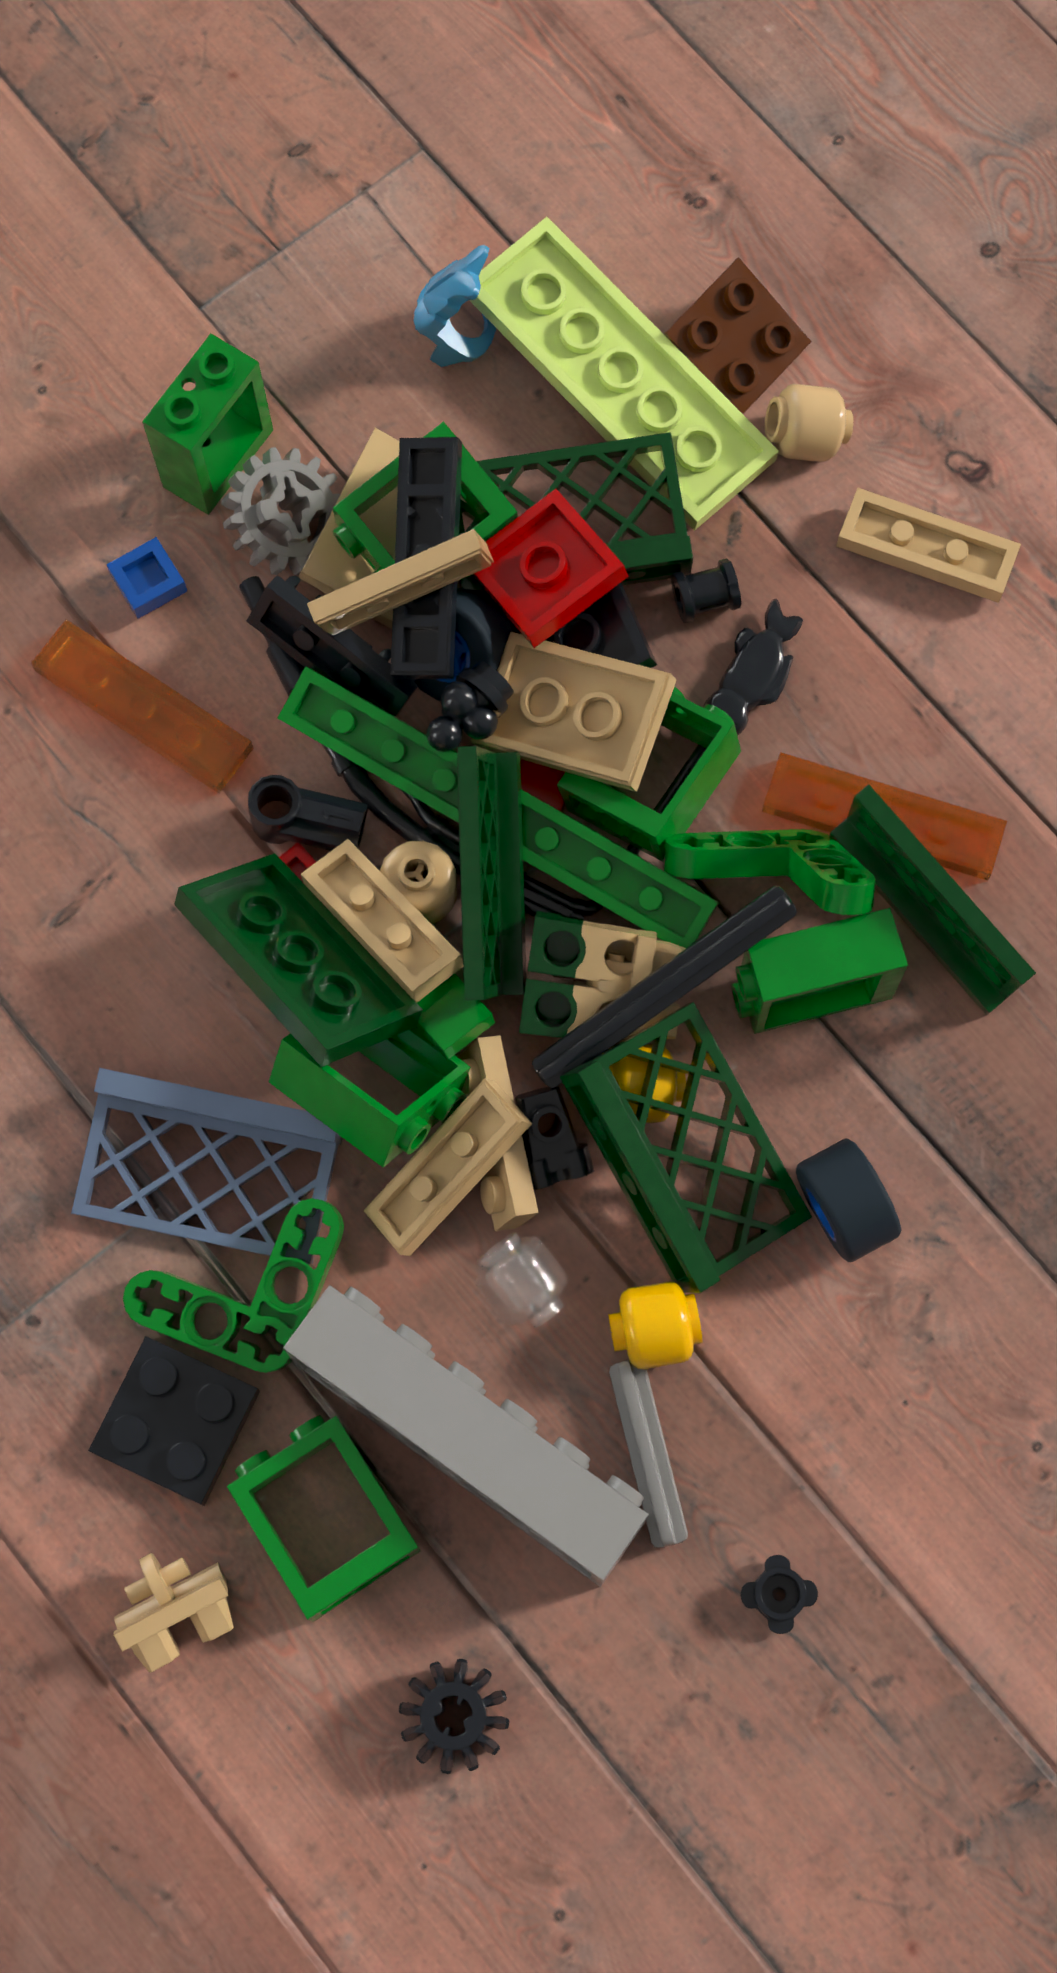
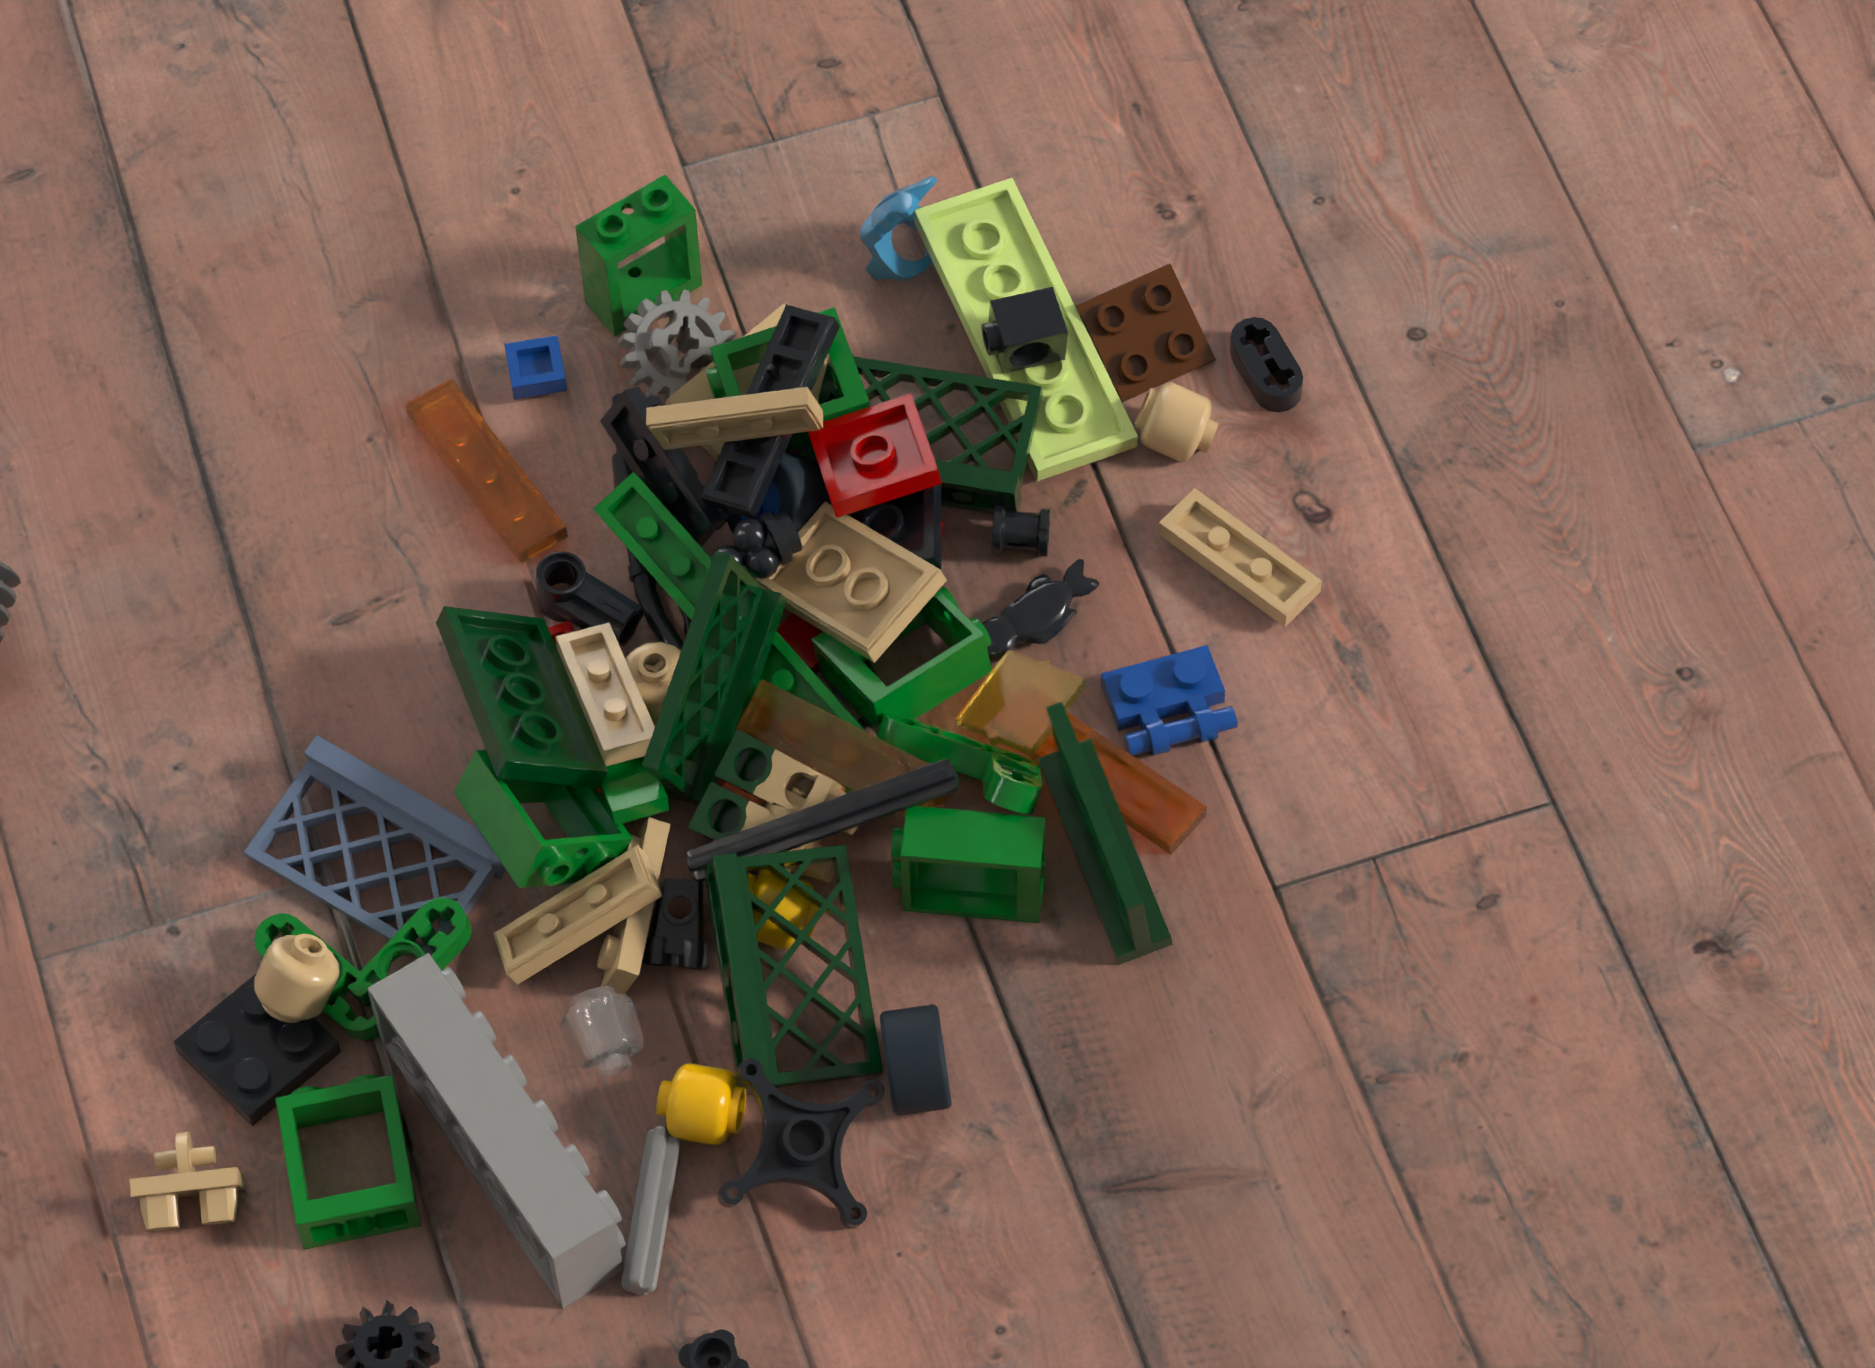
camera: 20 degrees right, 15 degrees down
(194, 1348) = (296, 977): none -> tan head
(631, 894) = (825, 741): none -> clear orange tile
(633, 377) = (1025, 330): none -> black brick
(774, 1333) = (801, 1143): none -> black piece
(785, 775) = (1014, 702): none -> clear yellow piece
(868, 328) = (1257, 369): none -> black beam
(911, 708) = (1163, 689): none -> blue plate

